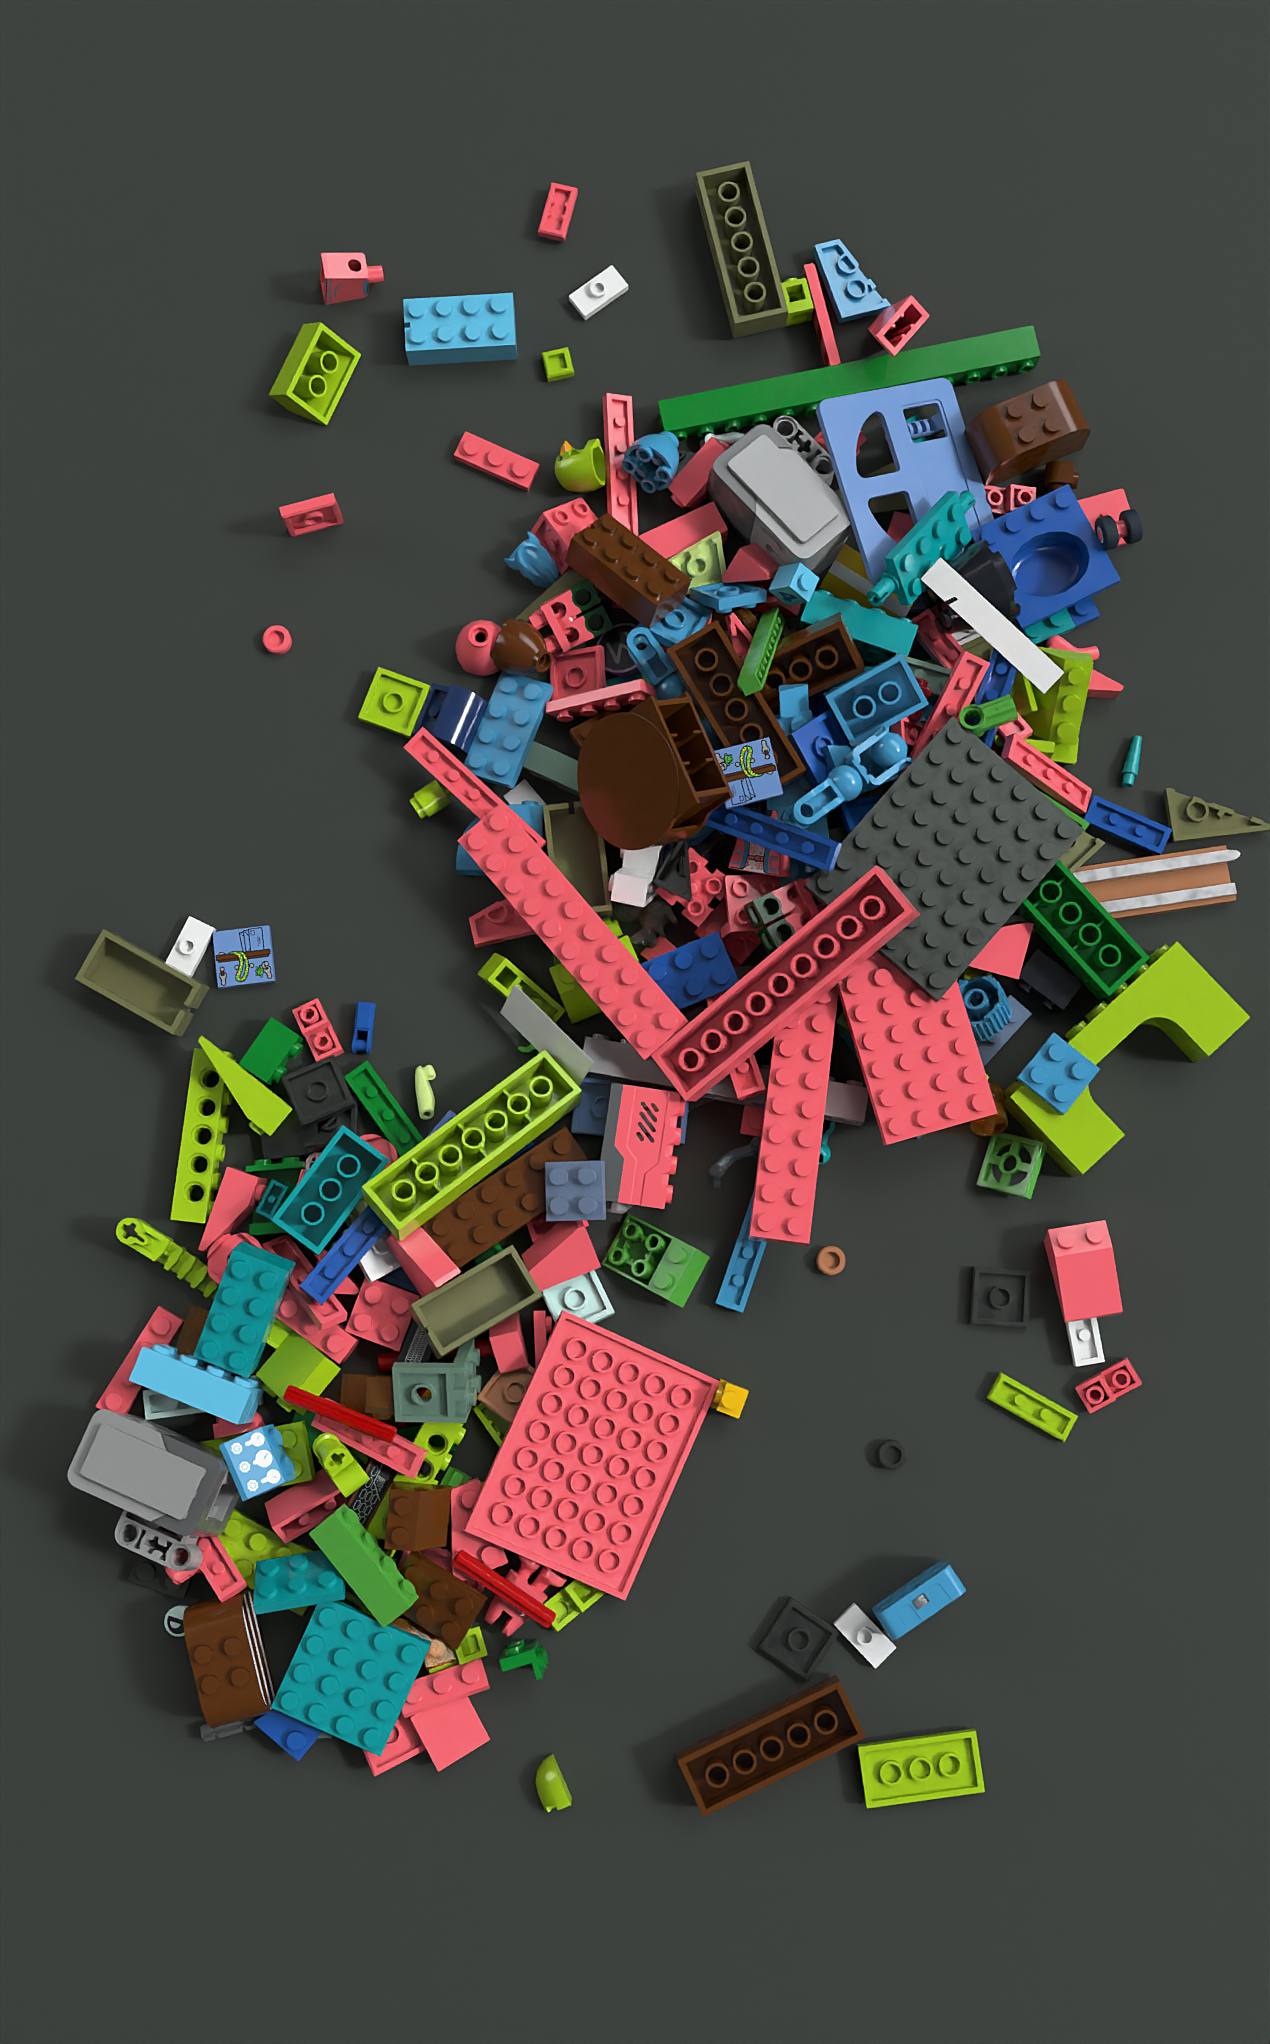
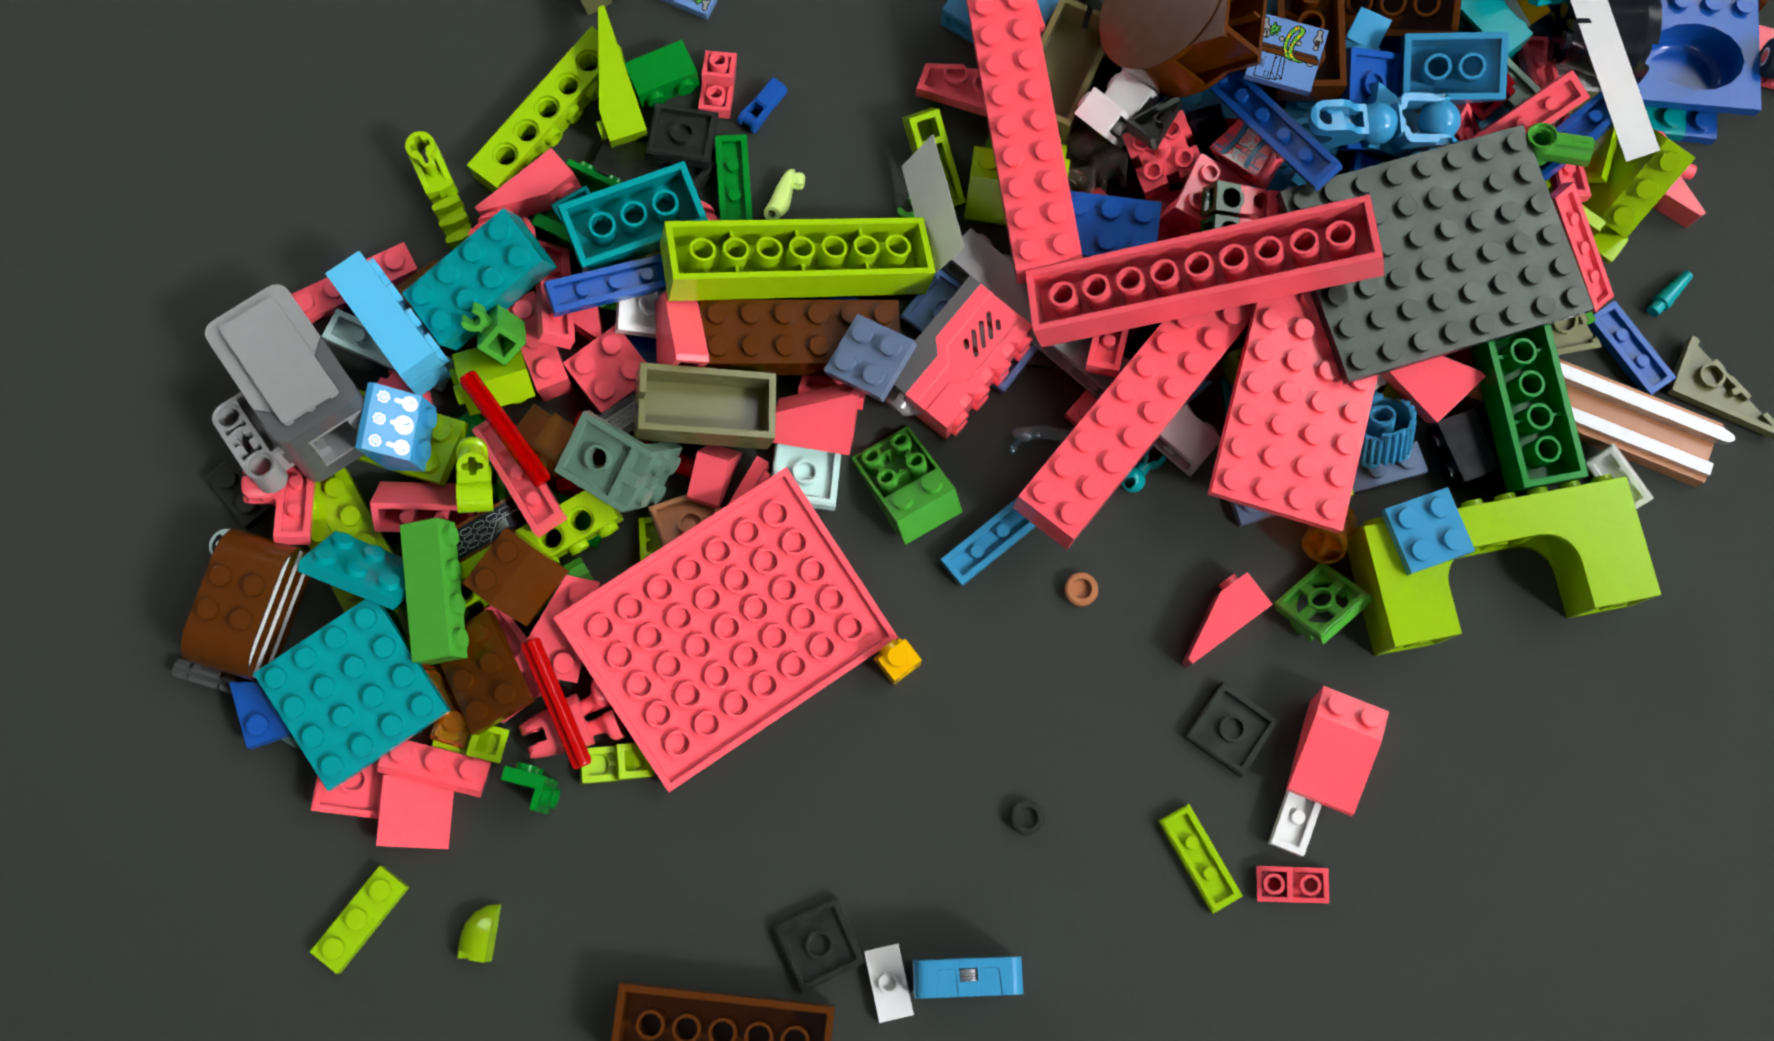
camera: 25 degrees right, 5 degrees down
(285, 1341) = (498, 333): none -> bright green brick
(458, 1829) = (359, 919): none -> lime plate
(948, 1213) = (1228, 612): none -> coral slope
(1164, 929) = (1613, 462): none -> white plate

